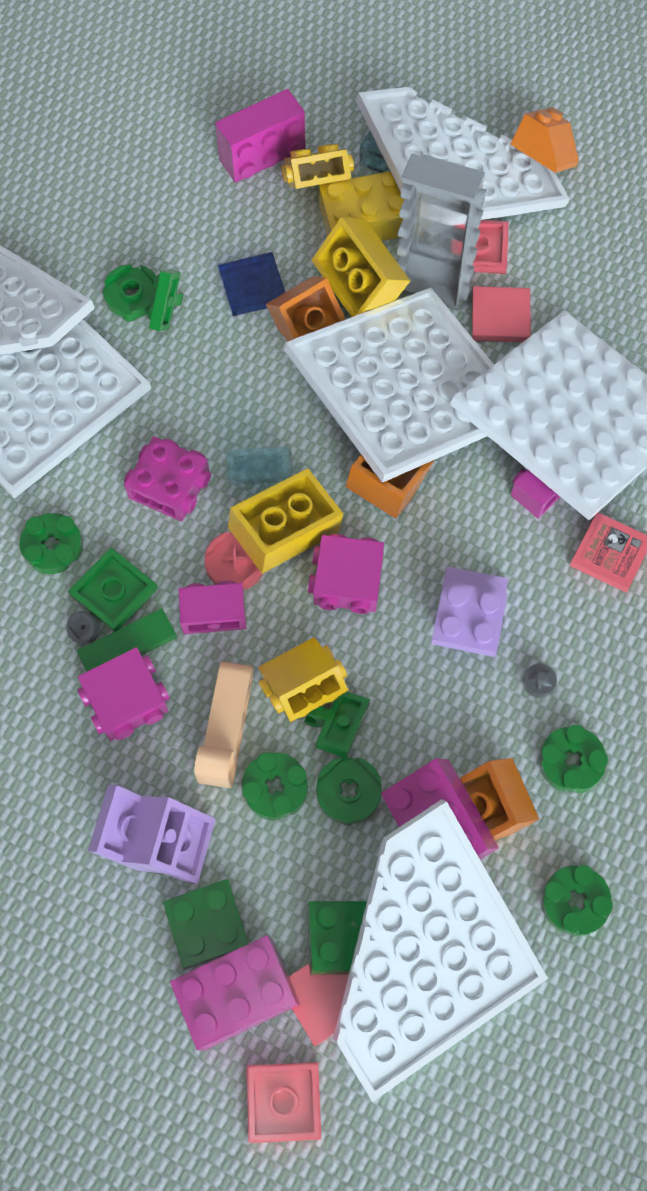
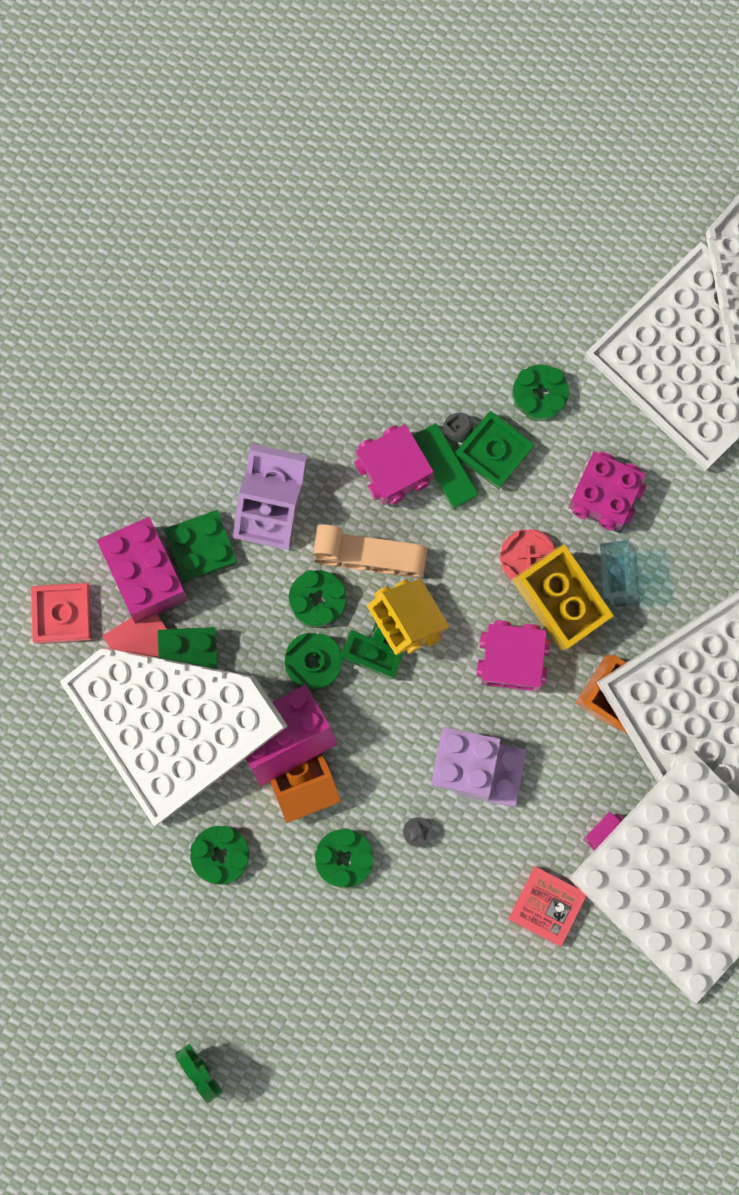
camera: 85 degrees right, 10 degrees up
(212, 607) = (478, 537): dark pink brick -> none

